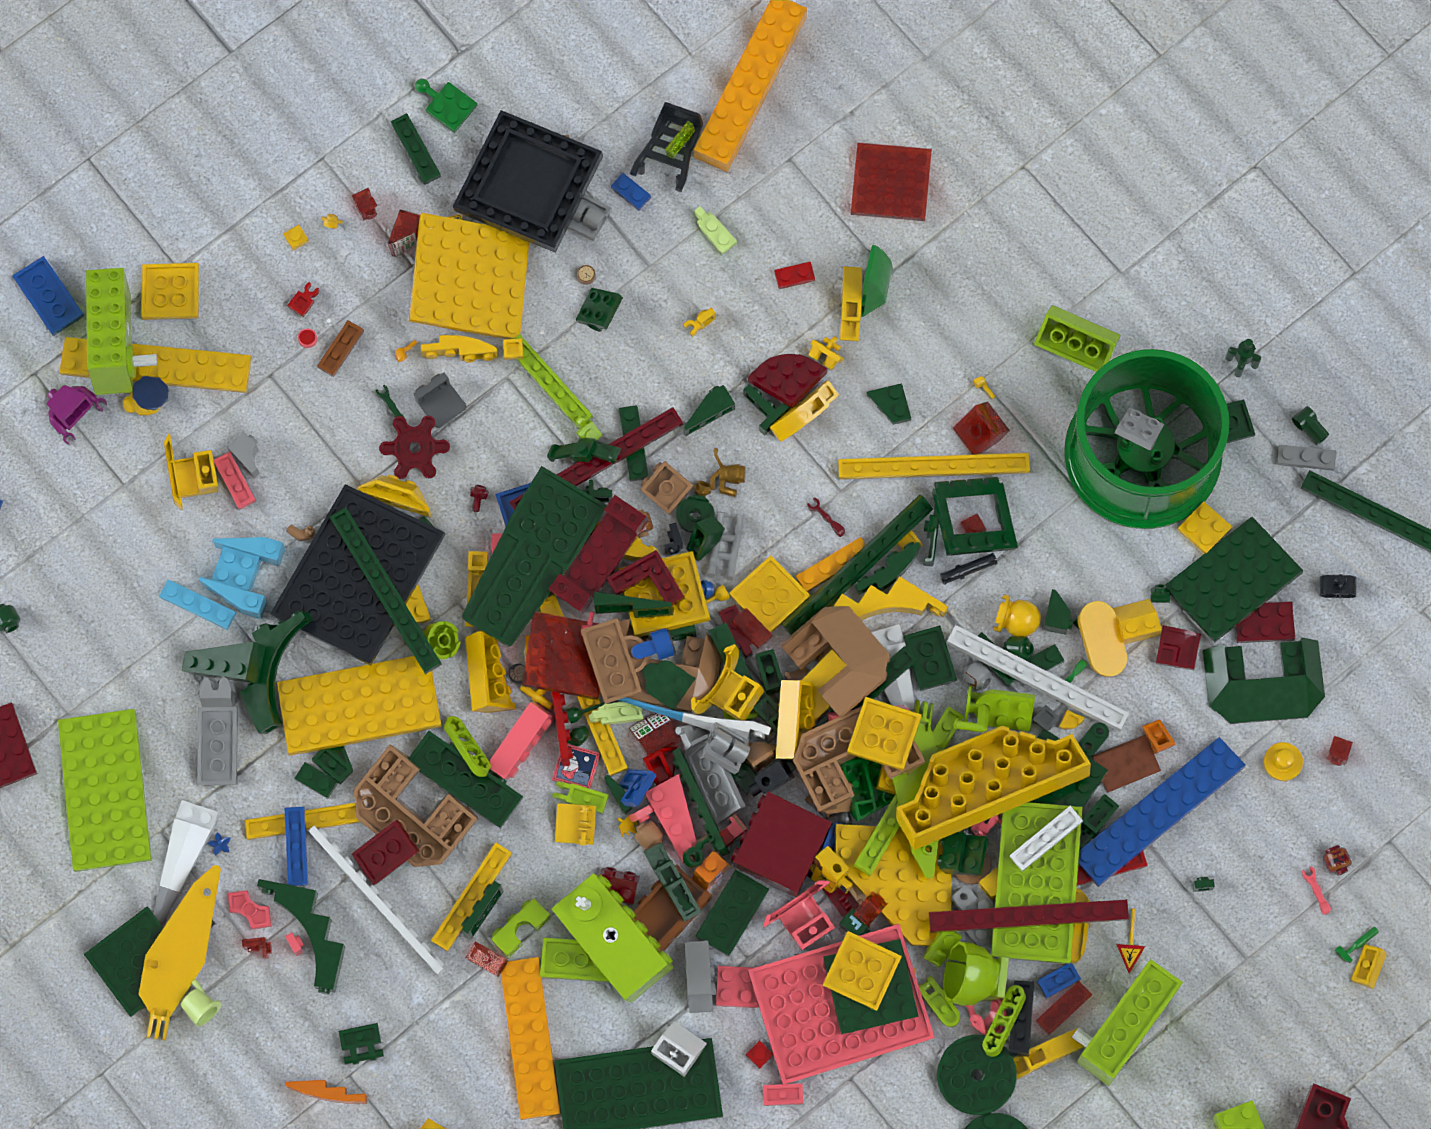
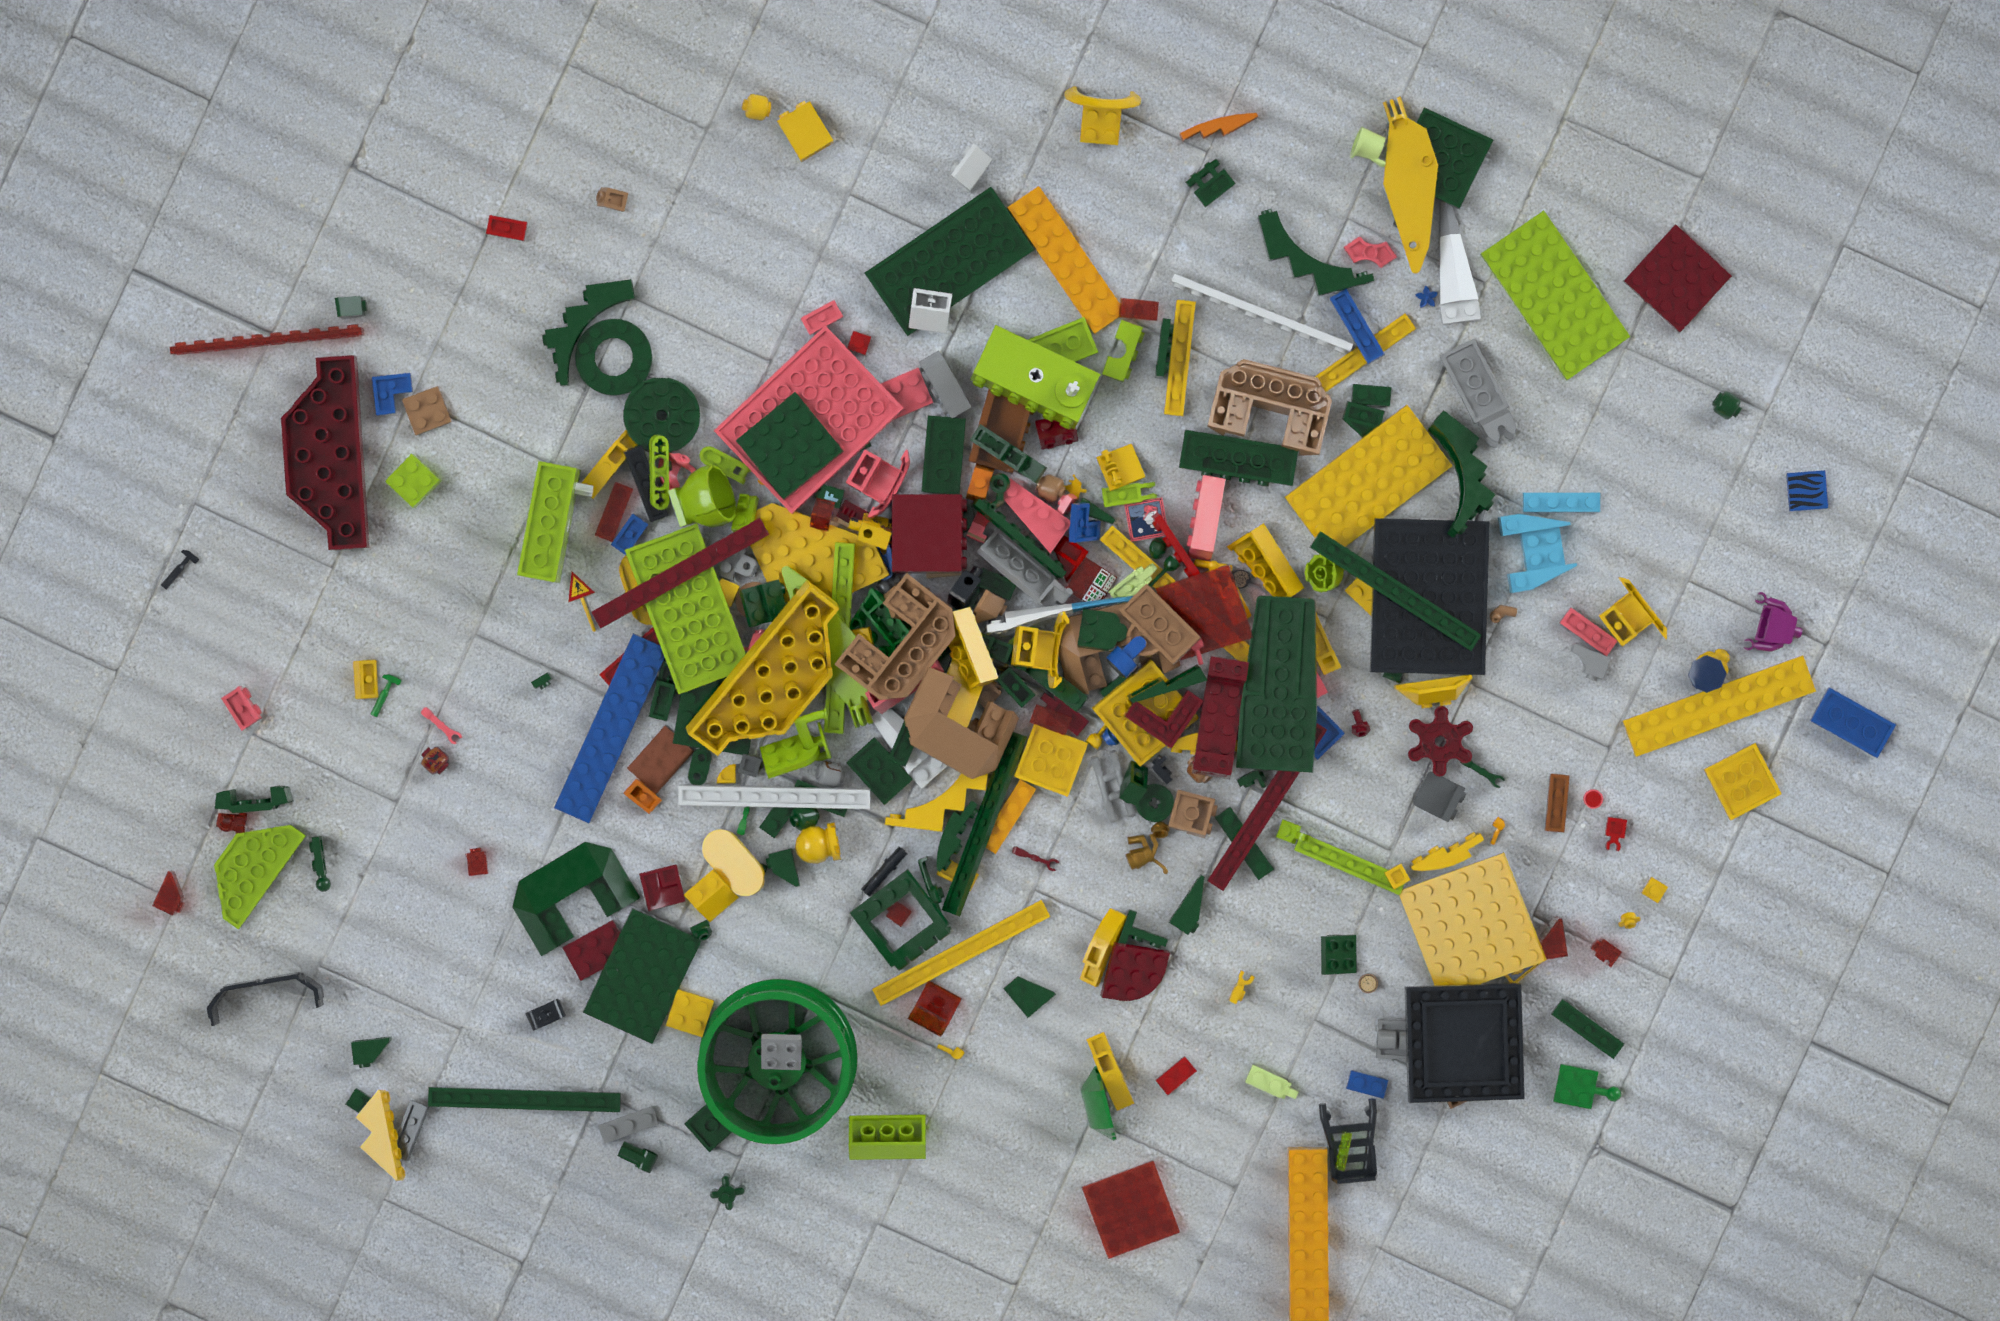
camera: 155 degrees right, 15 degrees up
(109, 333) = (1772, 707): lime piece -> none
(235, 662) = (1499, 457): wedge -> none
(254, 944) = (1348, 222): clear red bracket -> none
(295, 943) = (1313, 241): coral plate -> none
(385, 852) = (1274, 358): dark red plate -> none
(477, 763) = (1249, 490): lime beam -> none
(584, 450) = (1283, 810): dark green plate -> none
(726, 748) = (1018, 595): light grey plate -> none
(819, 348) = (1109, 1016): yellow hips -> none
(862, 970) = (802, 452): yellow plate -> none
(884, 733) = (881, 669): yellow plate -> none
(1046, 838) = (696, 649): white plate -> none
(1283, 761) = (522, 828): yellow plate -> none

